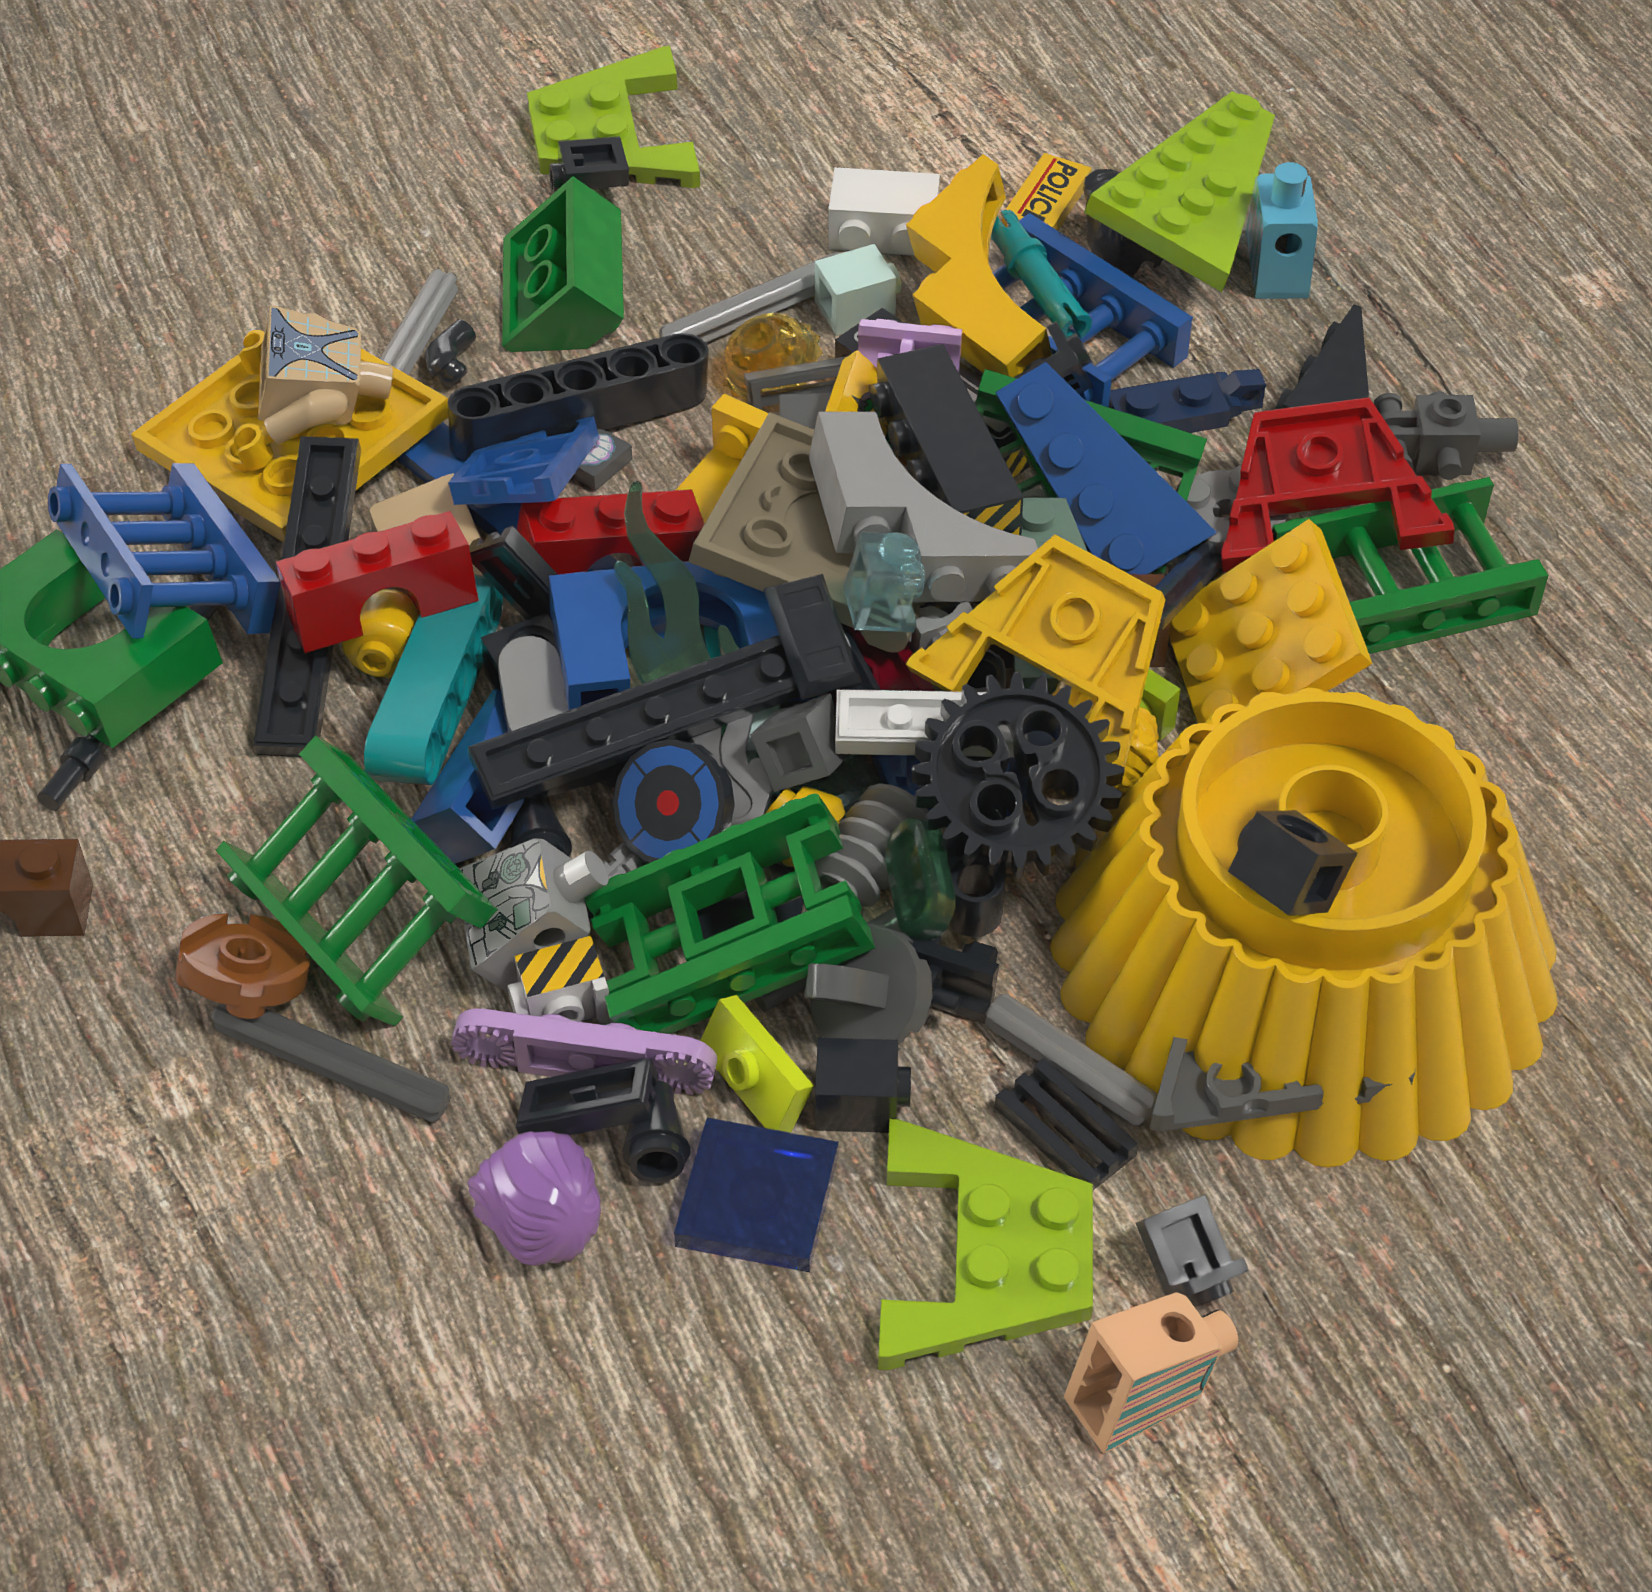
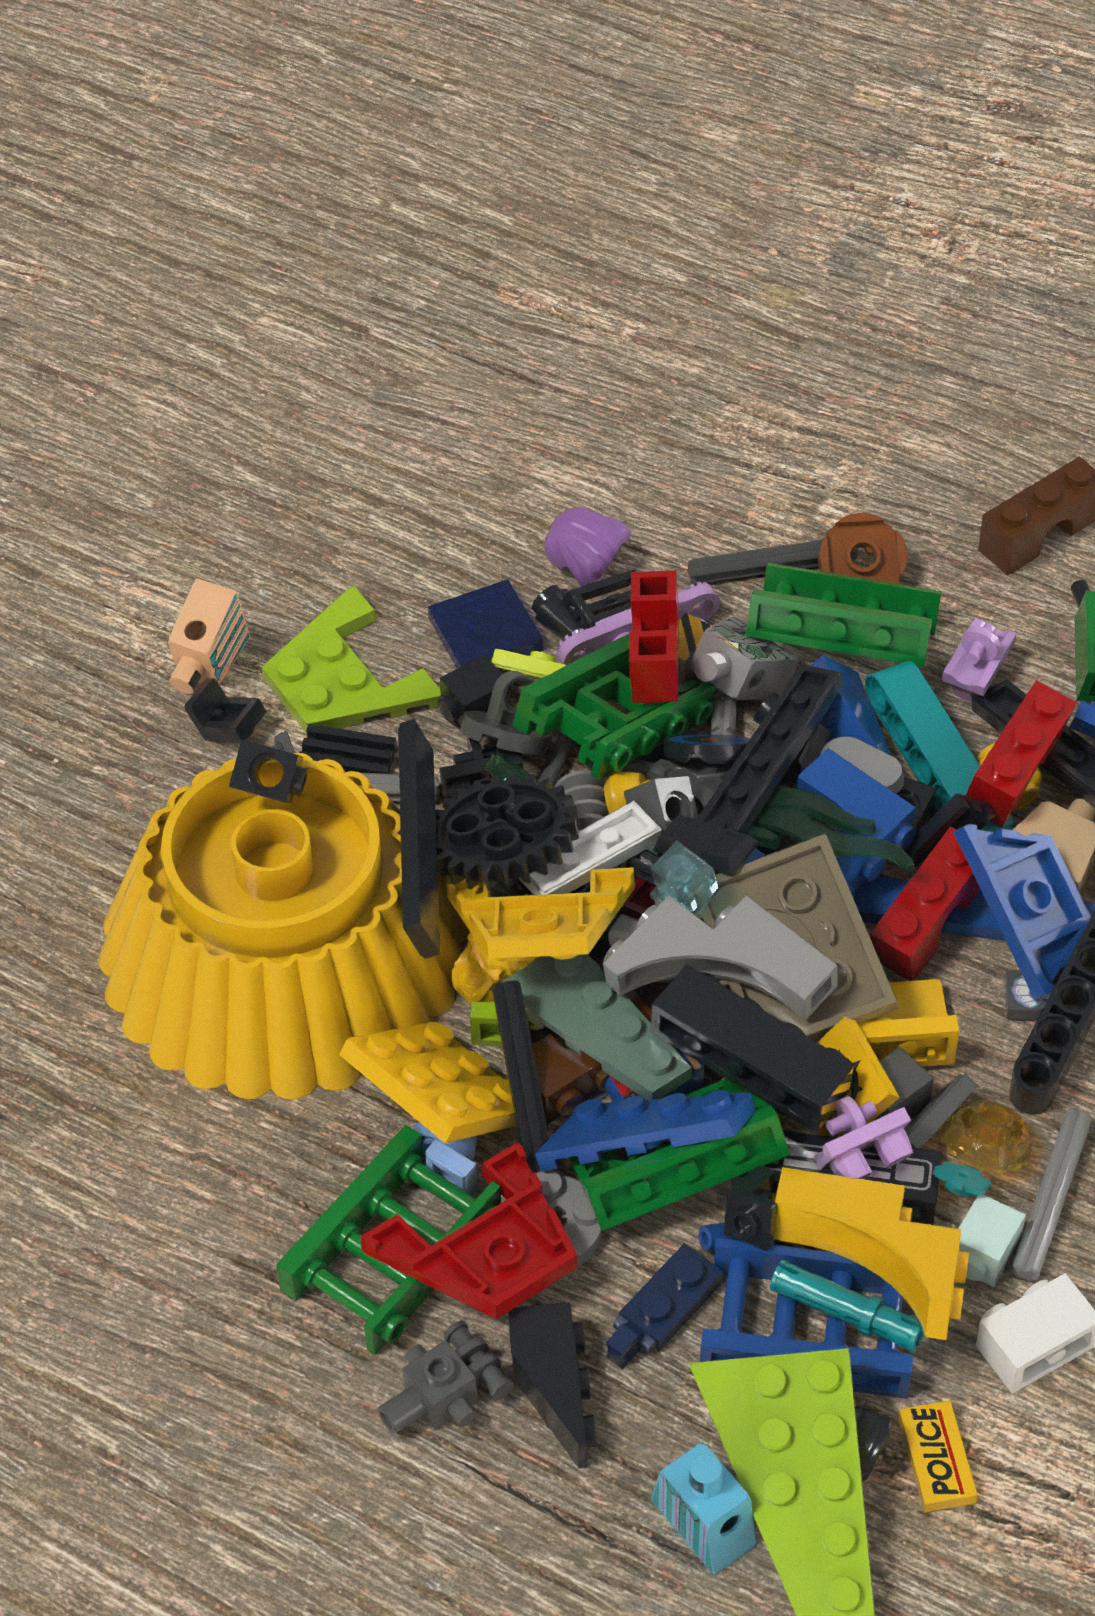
camera: 145 degrees right, 0 degrees up
(258, 765) = (978, 659): none -> lavender hips
(658, 885) = (654, 637): none -> red arch
(839, 309) = (962, 1179): none -> teal plant
(1131, 782) = (418, 840): none -> black tile

